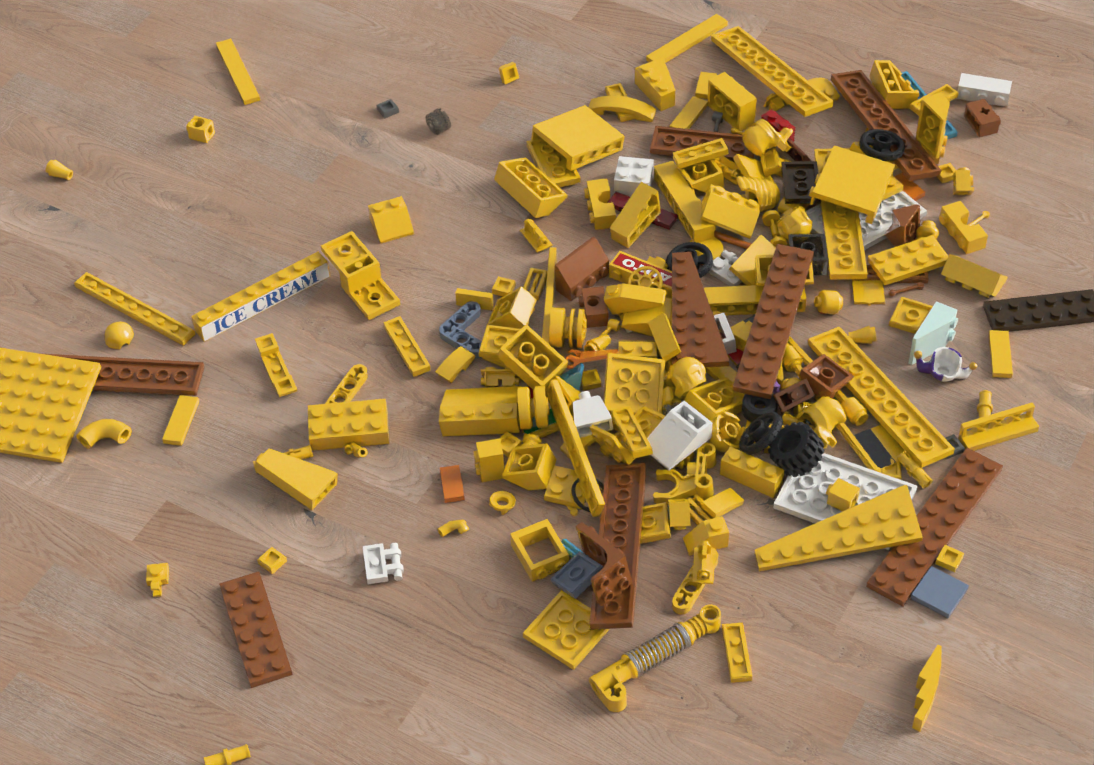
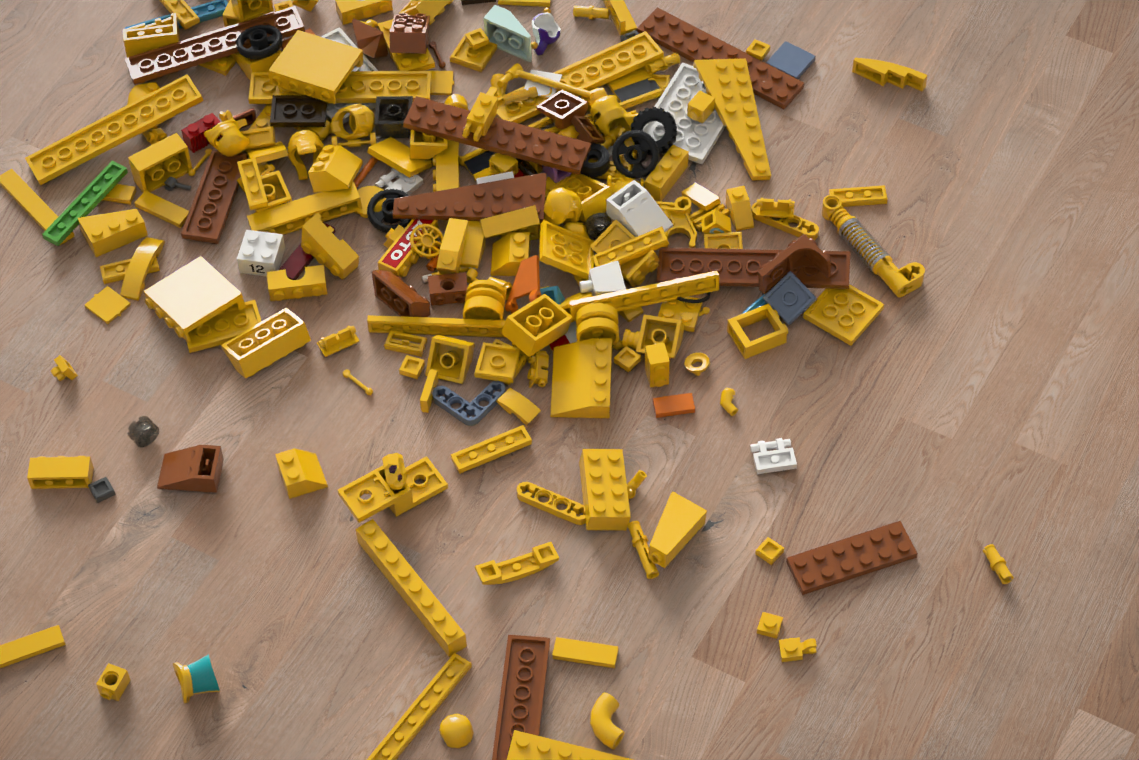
camera: 90 degrees left, 5 degrees up
(187, 558) = (769, 625): none -> yellow plate
(190, 170) = (196, 678): none -> teal hat
(361, 262) = (394, 471): none -> yellow rock
(397, 156) = (192, 469): none -> dark orange slope
(403, 81) = (60, 472): none -> yellow brick
(501, 247) = (346, 373): none -> yellow hinge
(581, 93) = (107, 304): none -> yellow piece
(681, 61) = (84, 203): none -> bright green plate
(783, 293) = (482, 114): none -> yellow hinge
(844, 345) = (520, 95): none -> yellow axle
(868, 364) = (543, 89): none -> white sticker
(880, 344) = (517, 71): none -> yellow bar
(913, 252) = (409, 33): none -> dark orange slope
(921, 310) = (477, 38): none -> yellow plate

